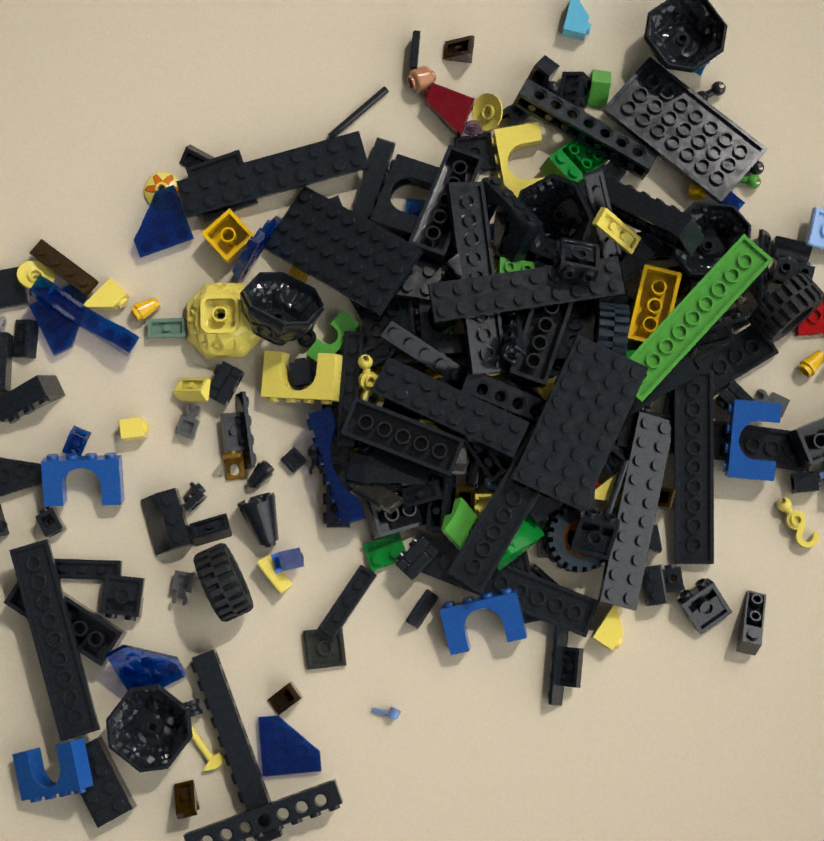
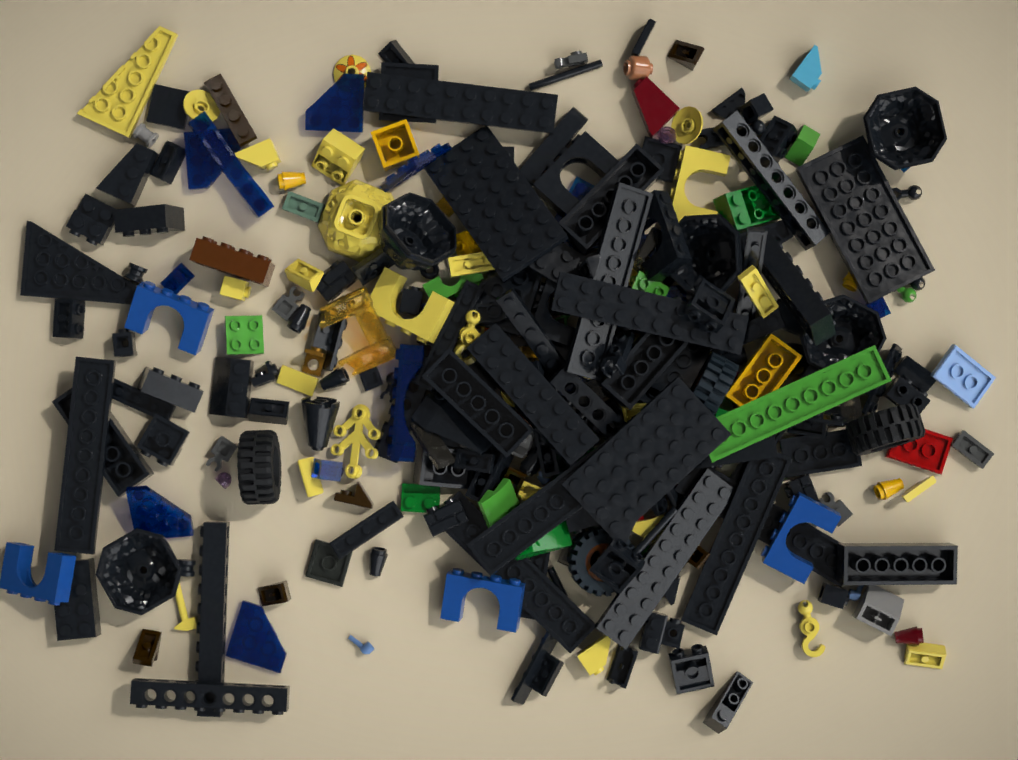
camera: 25 degrees right, 5 degrees up
(34, 452) = (135, 272): none -> black wheel
(110, 545) = (170, 388): none -> black wedge
(121, 404) = (233, 262): none -> reddish brown brick
(159, 467) = (244, 335): none -> bright green hinge
(180, 269) = (337, 156): none -> light yellow slope
(194, 610) = (224, 479): none -> clear purple hinge
(204, 433) = (299, 319): none -> black cone
(226, 489) = (297, 380): none -> light yellow slope
(252, 355) = (372, 266): none -> black bracket
(290, 424) = (380, 347): none -> clear yellow wedge
(303, 520) = (356, 438): none -> light yellow plant
(329, 575) = (360, 499): none -> dark brown slope
(333, 300) = (466, 244): none -> yellow brick
(342, 315) = (469, 264): none -> light yellow plate
(361, 94) = (575, 59): none -> dark grey plate
(368, 624) = (377, 560): none -> black cone
(422, 608) = (432, 564): black slope -> none
(518, 78) = (730, 105): none -> black tile
(638, 629) = (622, 666): none -> black hinge

